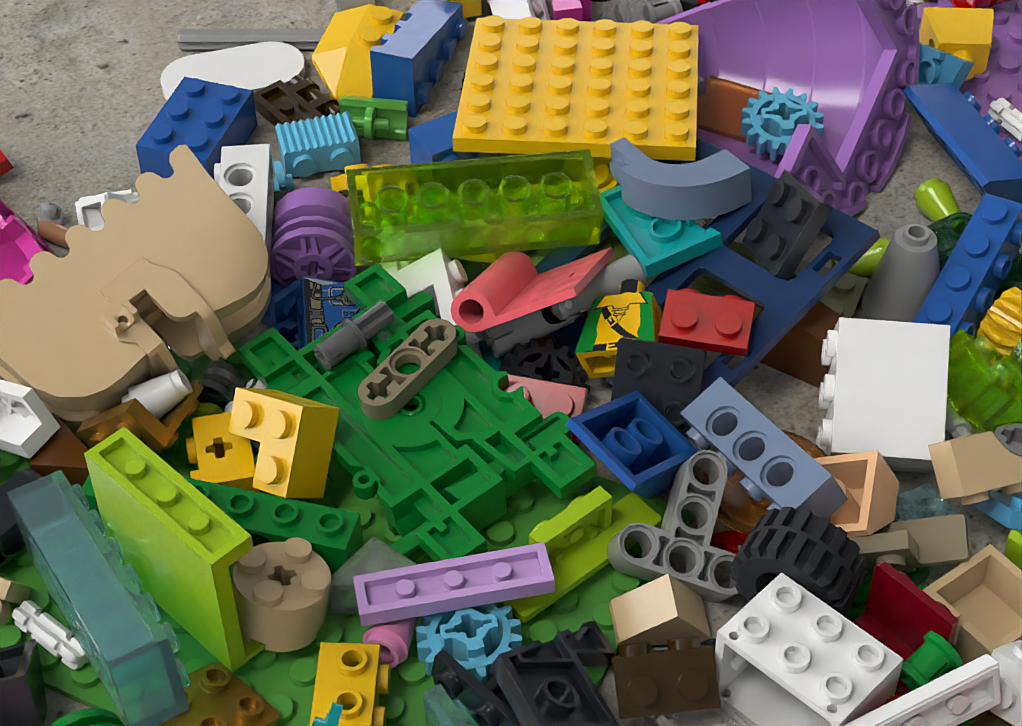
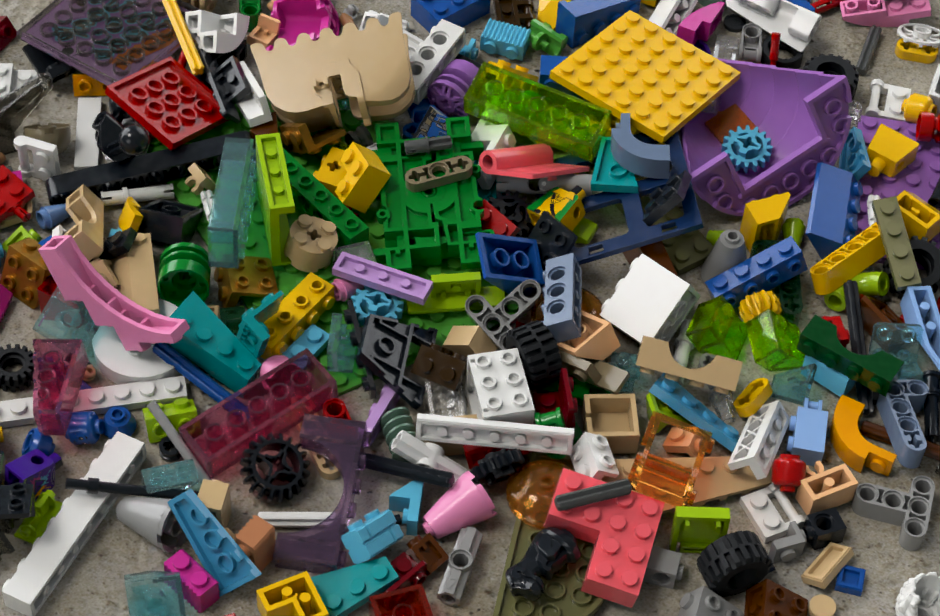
camera: 30 degrees right, 5 degrees up
(160, 393) = (322, 128): white cone -> none
(707, 321) = (592, 224): red bracket -> none
(902, 193) = (764, 218): none -> yellow slope

